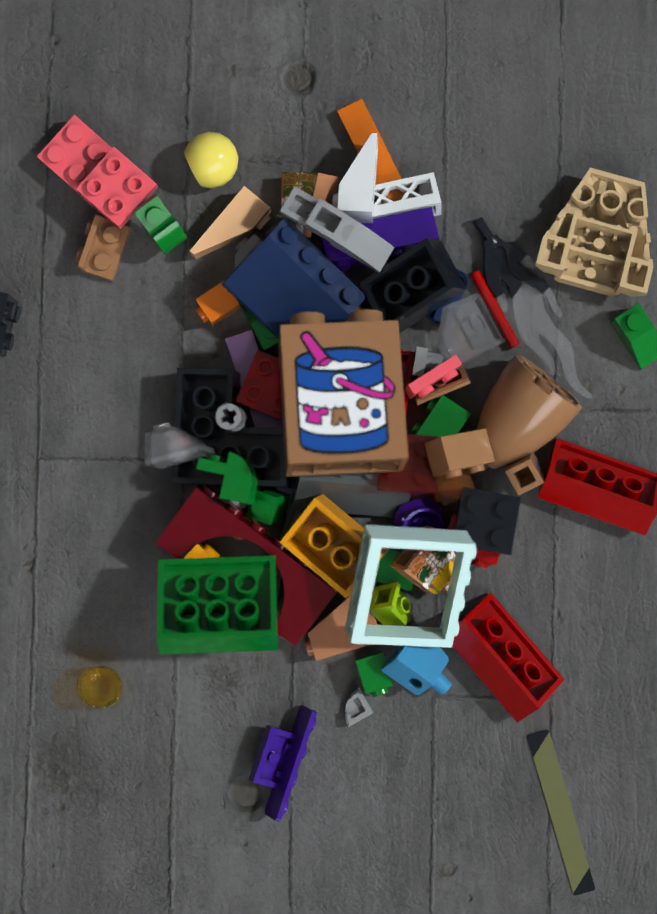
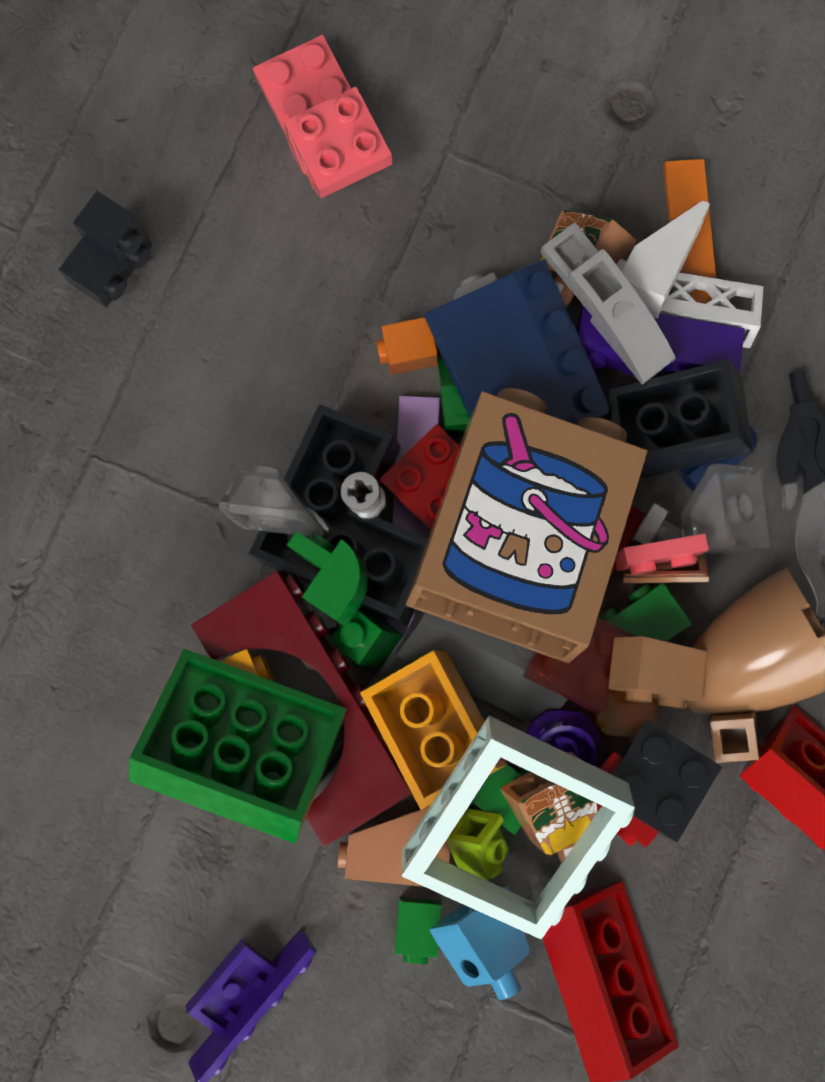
camera: 25 degrees right, 5 degrees down
(100, 687) = (37, 792): clear yellow hair -> none
(103, 248) = (288, 217): medium nougat bracket -> none
(160, 224) = (375, 211): green brick -> none
(211, 159) = (477, 157): light yellow helmet -> none
(237, 221) = (478, 248): light nougat slope -> none
(356, 708) = (374, 966): light grey tile -> none
(494, 309) = (774, 500): red bar -> none

